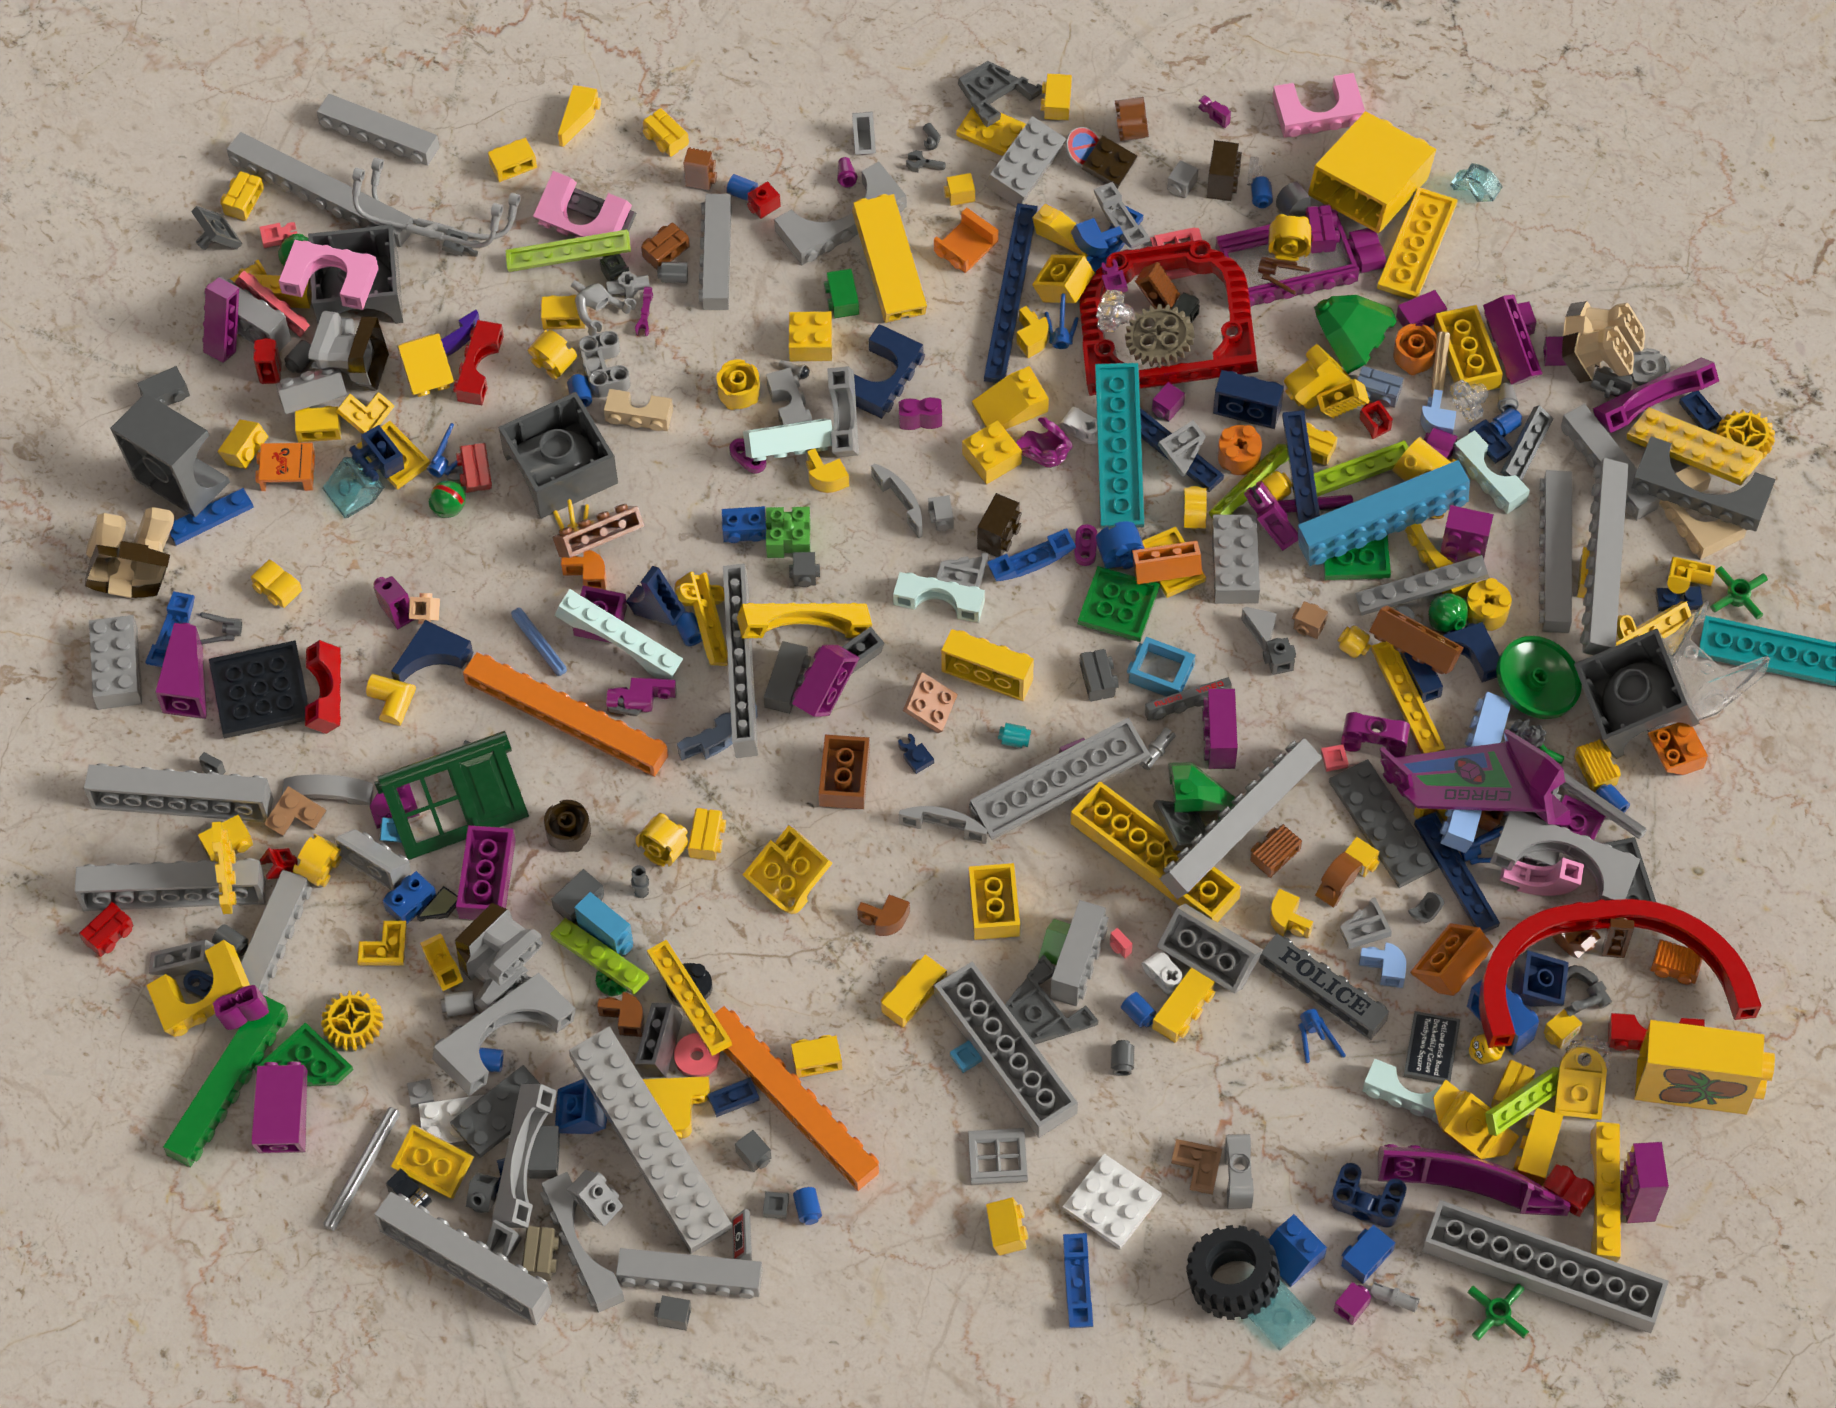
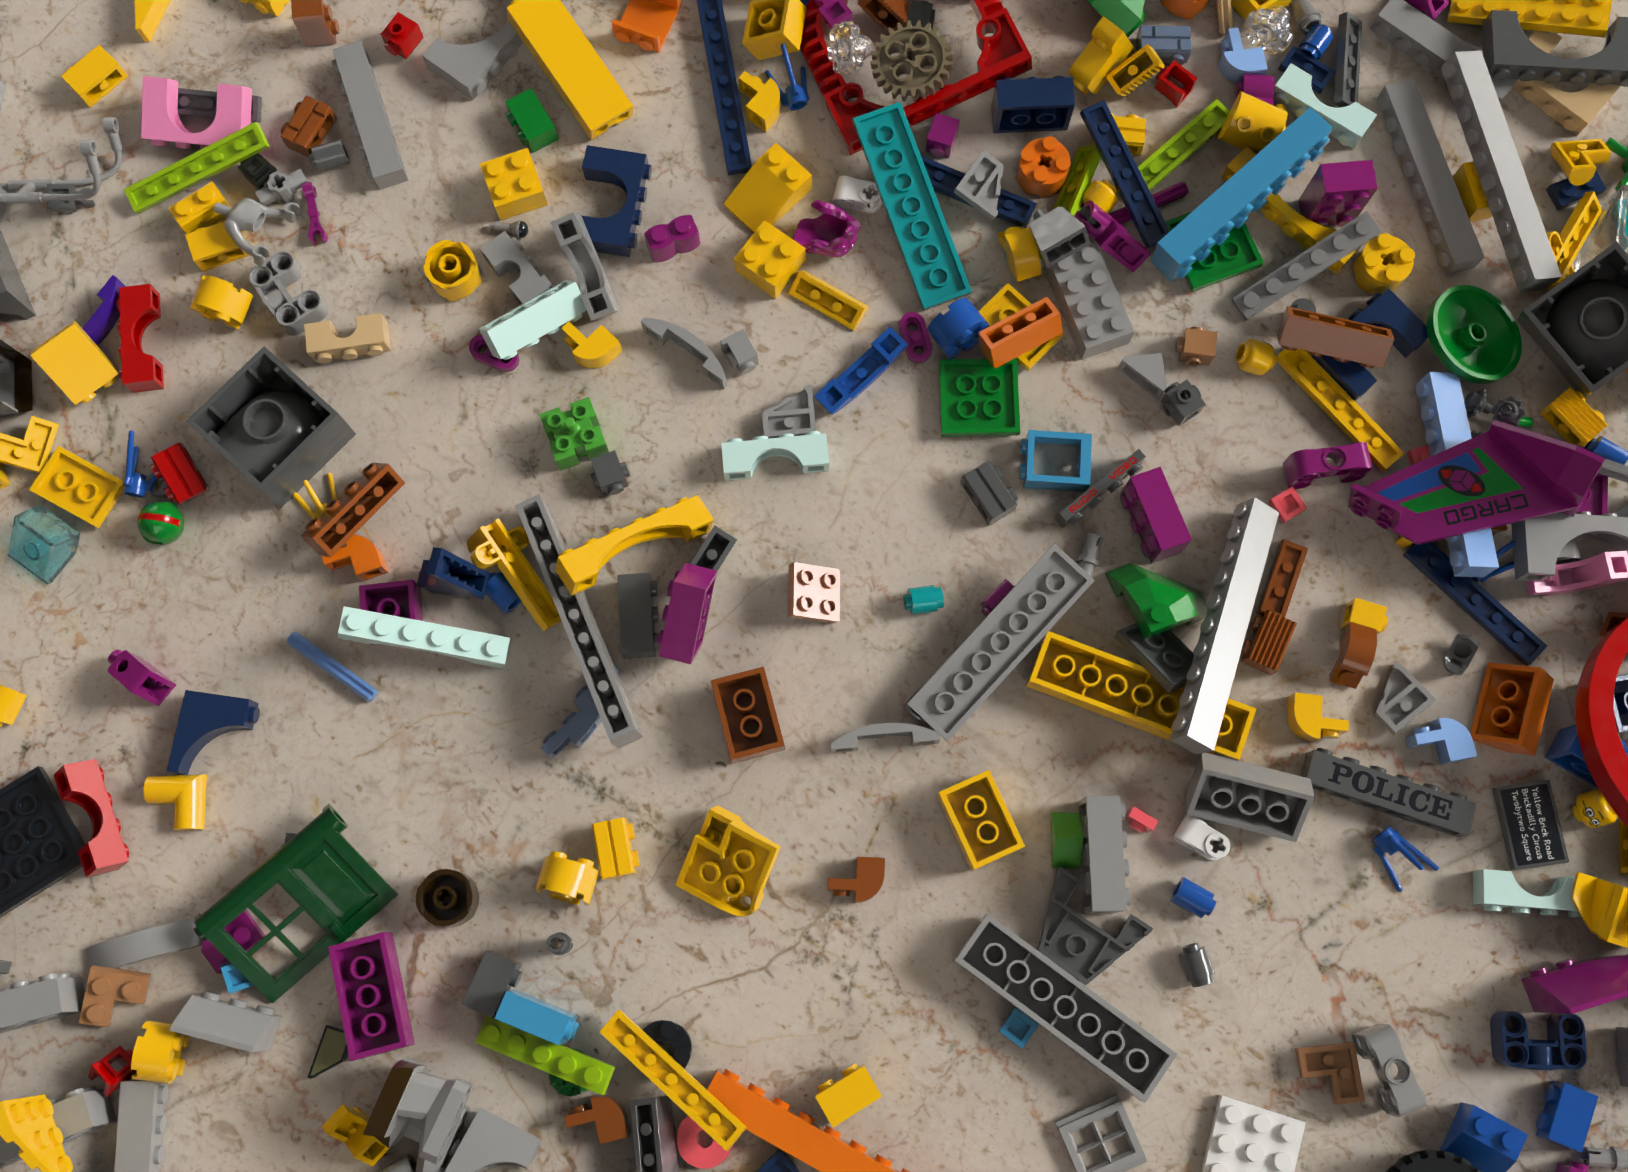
camera: 20 degrees left, 15 degrees up
(237, 834) = (39, 1059): yellow brick -> none
(382, 453) = (59, 493): dark blue brick -> none
(385, 952) = (290, 1133): yellow brick -> none
(409, 898) = (289, 1058): blue brick -> none
(424, 608) = (179, 674): light nougat brick -> none
(558, 281) = (198, 208): none -> yellow brick
(566, 714) = (394, 750): orange brick -> none
(579, 384) = (271, 335): blue brick -> none
(639, 696) = (474, 699): magenta plate -> none
(740, 186) = (369, 28): blue brick -> none
(744, 524) = (520, 440): blue brick -> none
(912, 990) = (927, 965): yellow brick -> none
(916, 756) = (821, 661): dark blue plate -> none
(987, 664) = (863, 524): yellow brick -> none
(998, 526) = (813, 348): dark brown brick -> none
(1029, 497) = (828, 299): none -> yellow slope
(1184, 1005) = (1241, 874): yellow brick -> none
(1224, 499) = (1057, 234): none -> flat silver torso
(1310, 809) = (1282, 578): none -> dark orange tile
(1383, 823) = (1369, 565): dark grey plate -> none
(1448, 612) = (1346, 290): green plant -> none

